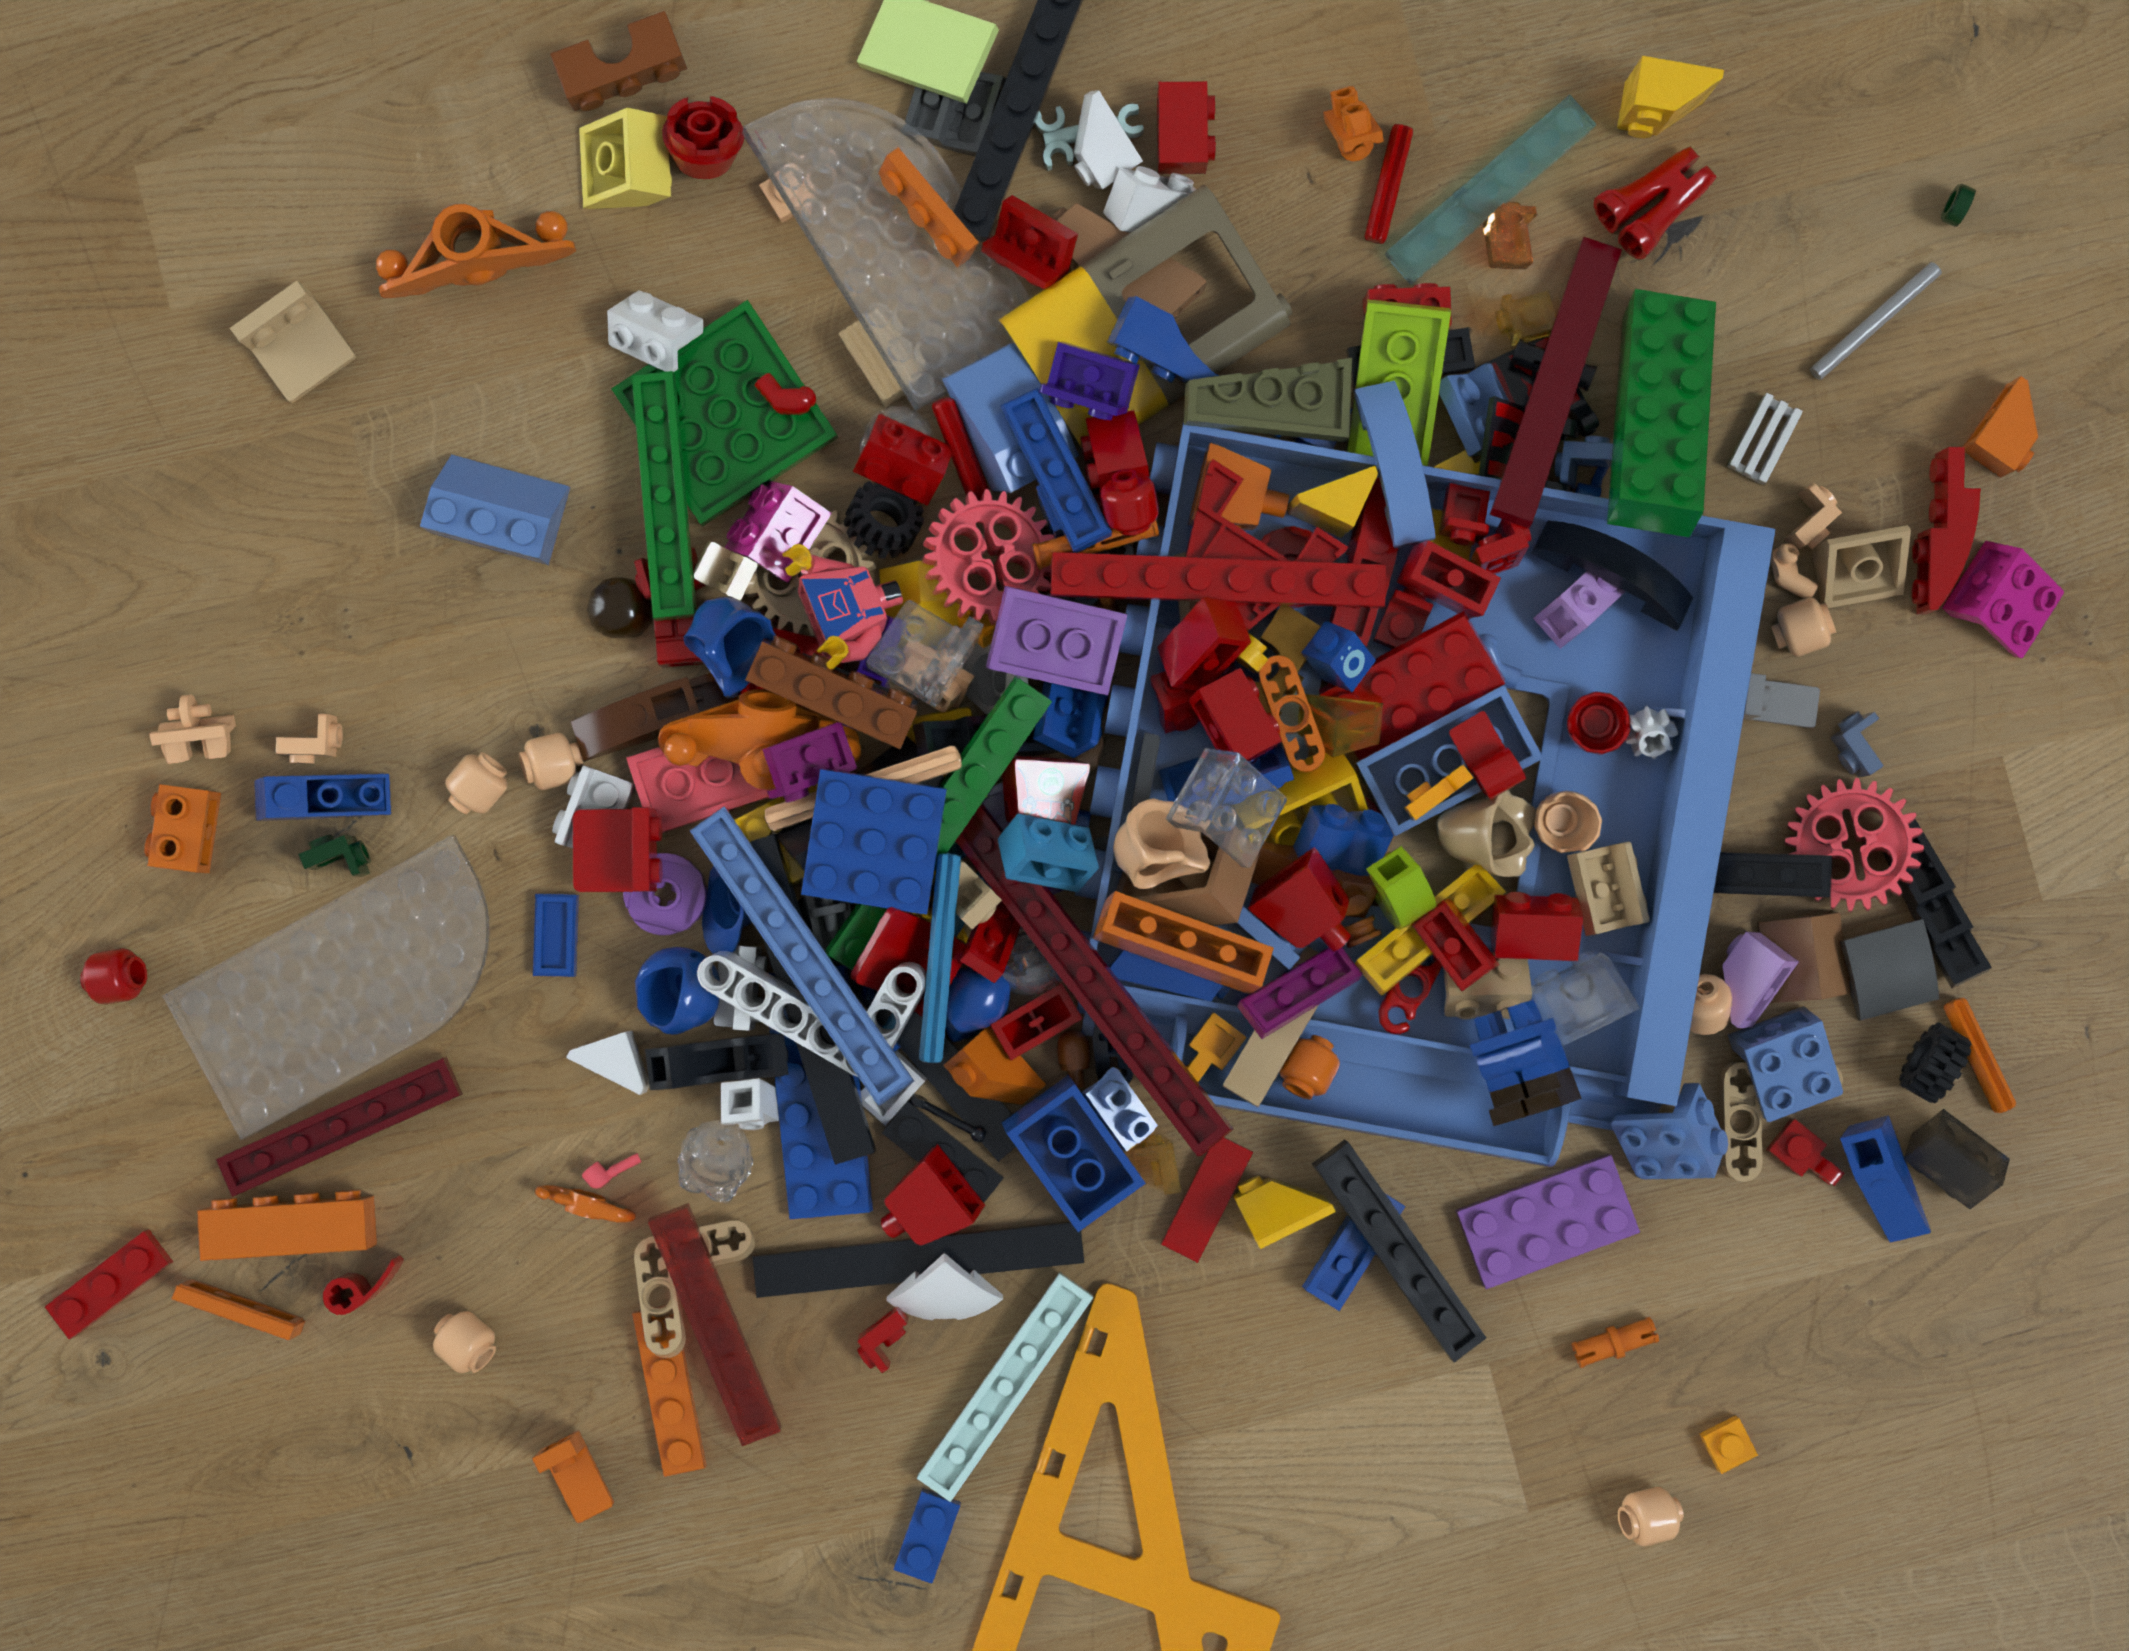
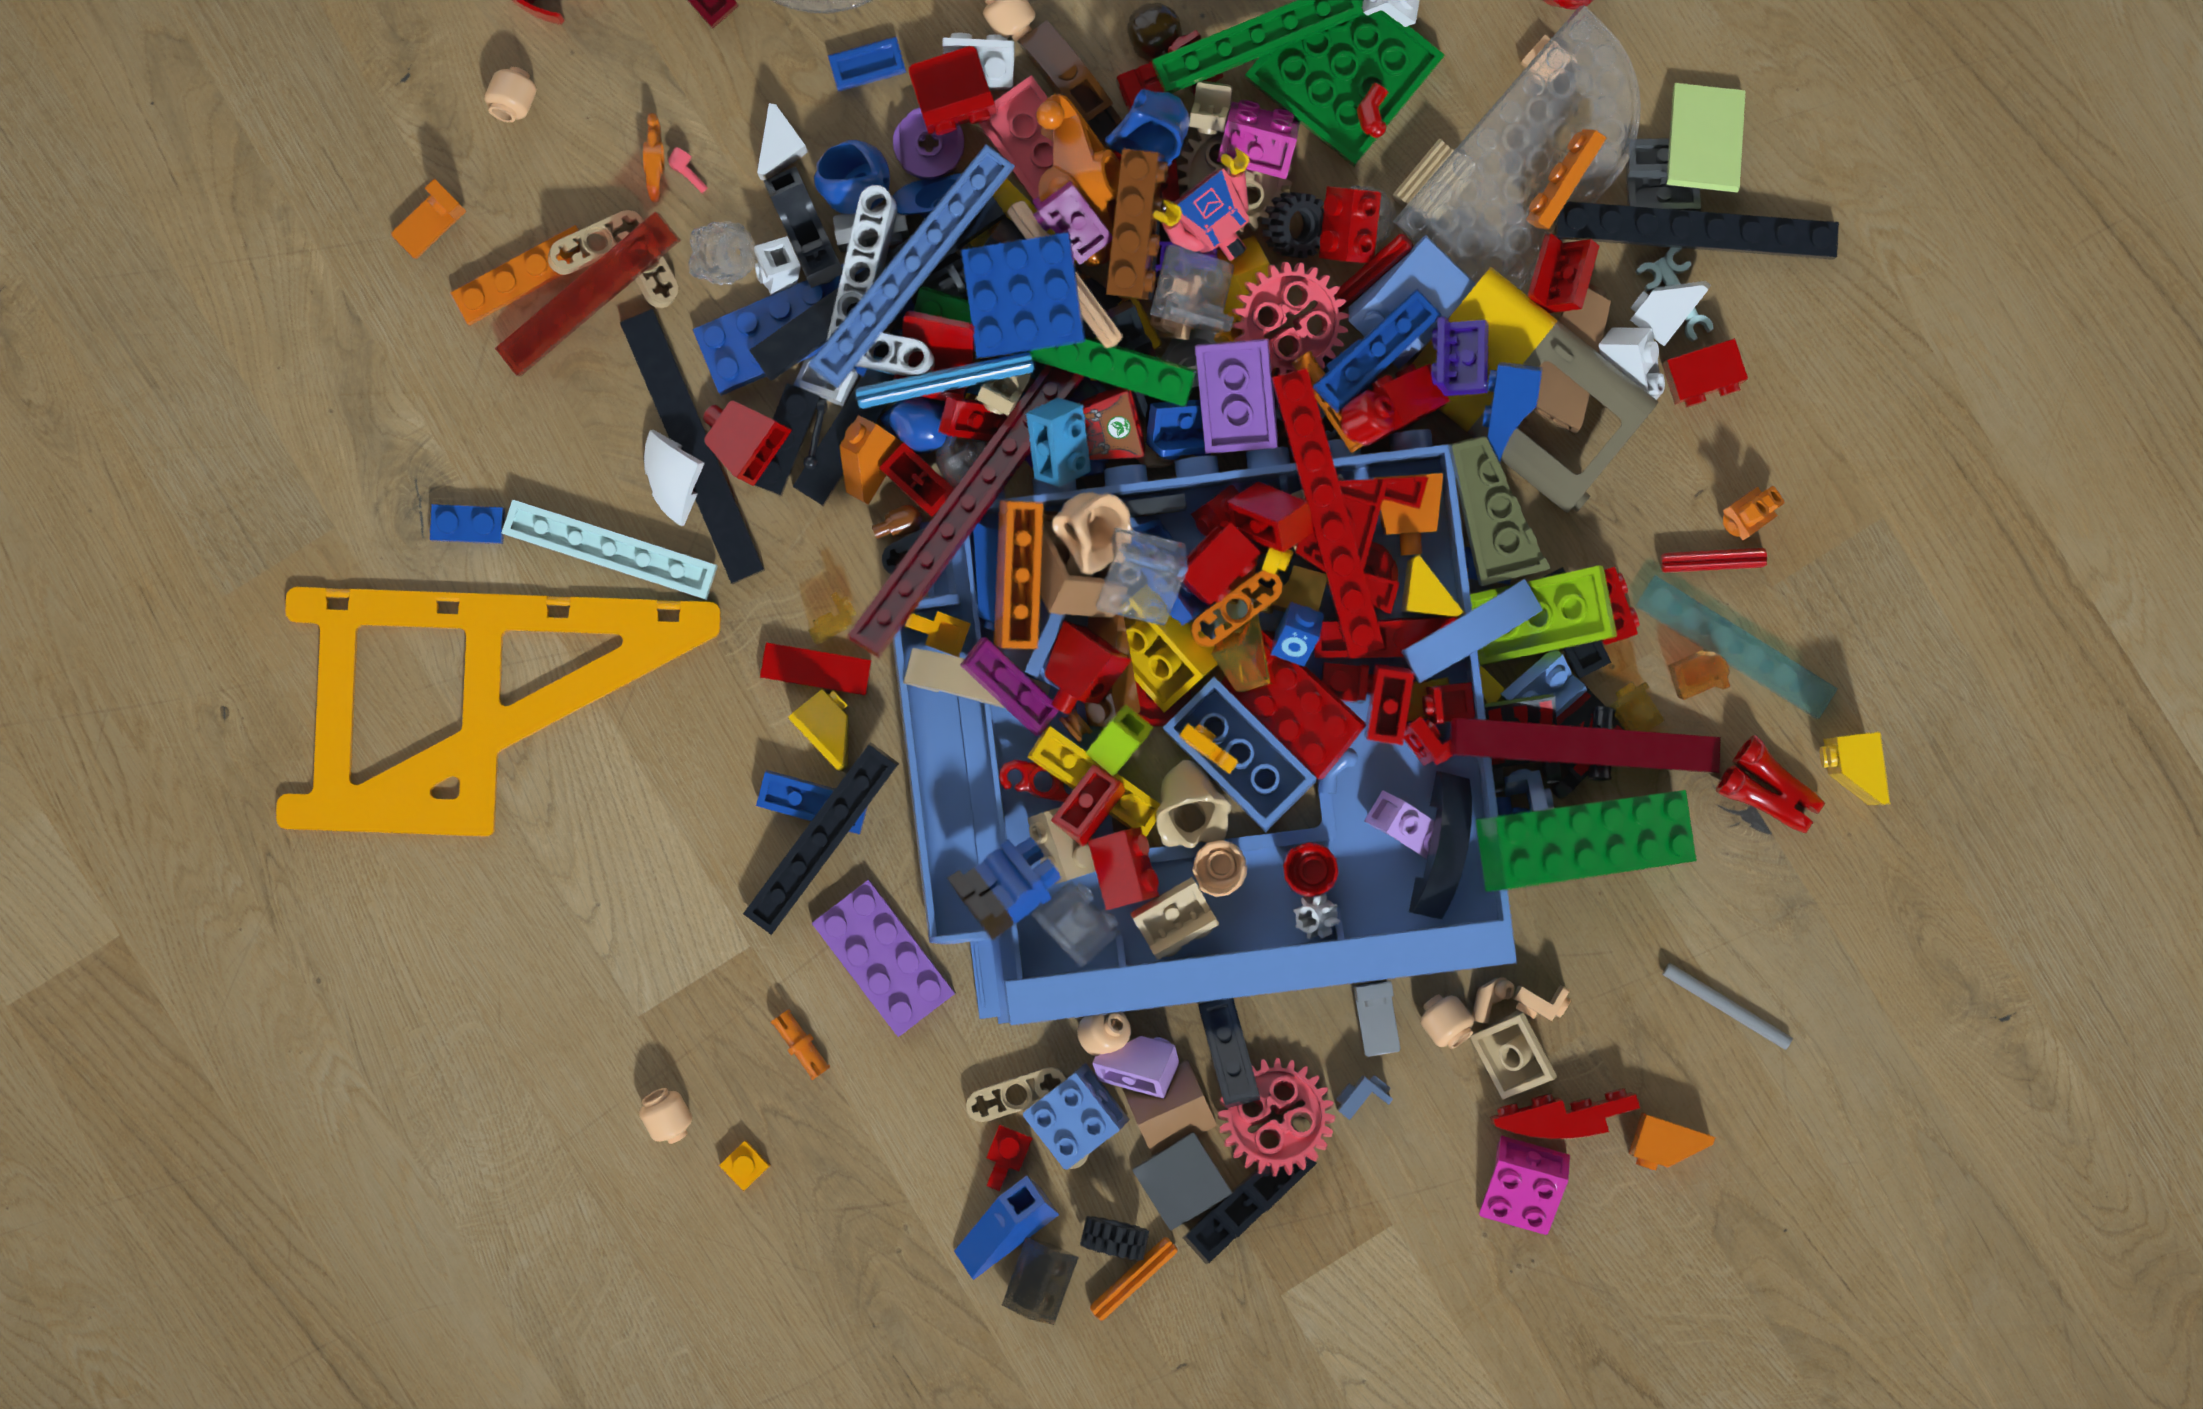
camera: 80 degrees right, 0 degrees up
(885, 1330) = (625, 437): red bracket -> none
(1073, 1153) = (818, 543): blue brick -> none
(1120, 1109) = (866, 571): light blue hips -> none
(1310, 1067) = (949, 716): orange head -> none
(1344, 838) = (1147, 684): blue brick -> none
(1486, 756) = (1252, 779): red panel -> none
(1675, 1143) = (981, 1041): medium blue bracket -> none
(1780, 409) = (1627, 947): white tile -> none
(1958, 204) = (1847, 1044): dark green tile -> none

